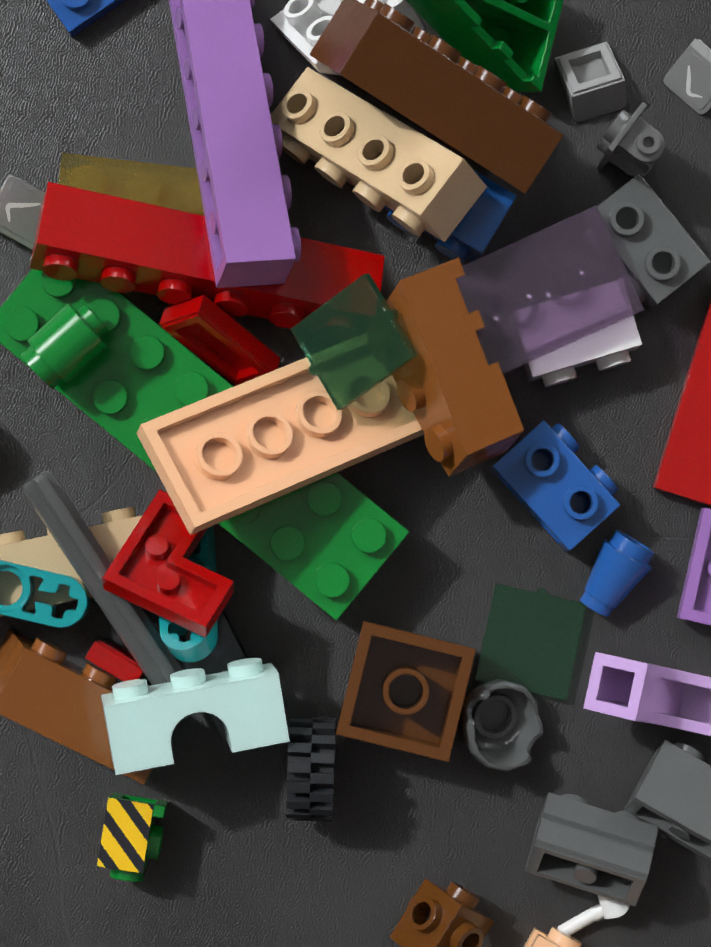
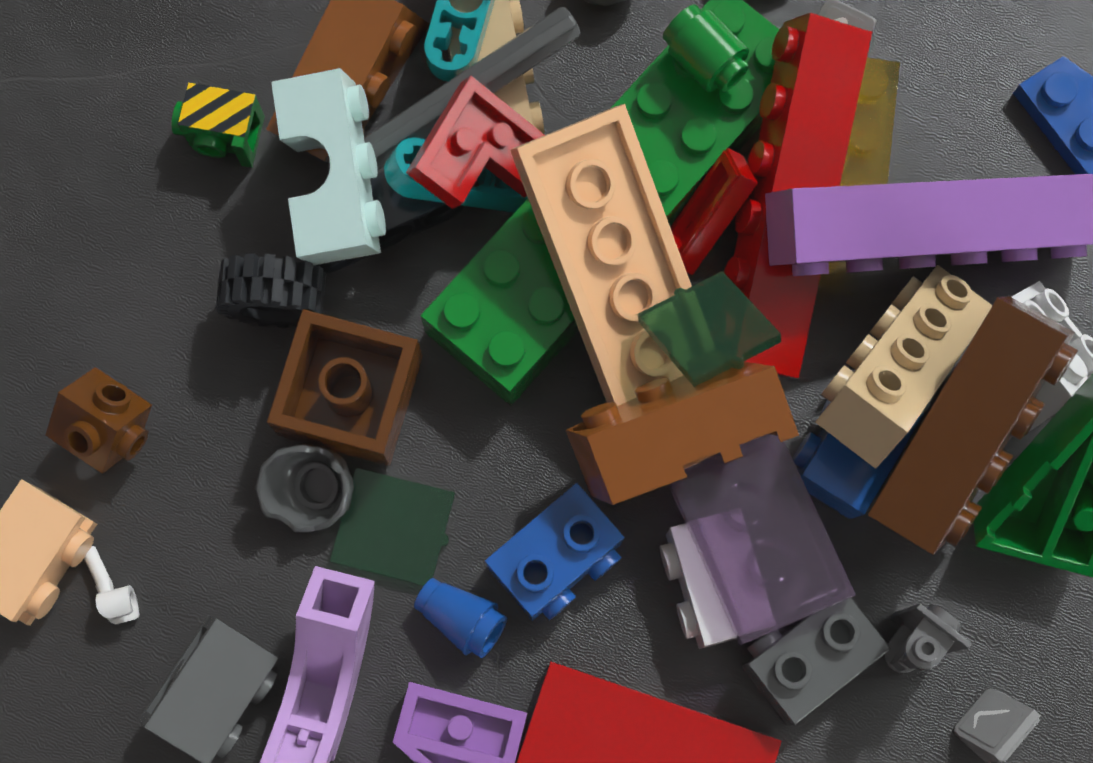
camera: 90 degrees right, 10 degrees down
(114, 660) = (393, 101): red tile -> none
(592, 82) = (987, 608): light grey slope -> none
(592, 848) = (170, 577): dark grey brick -> none

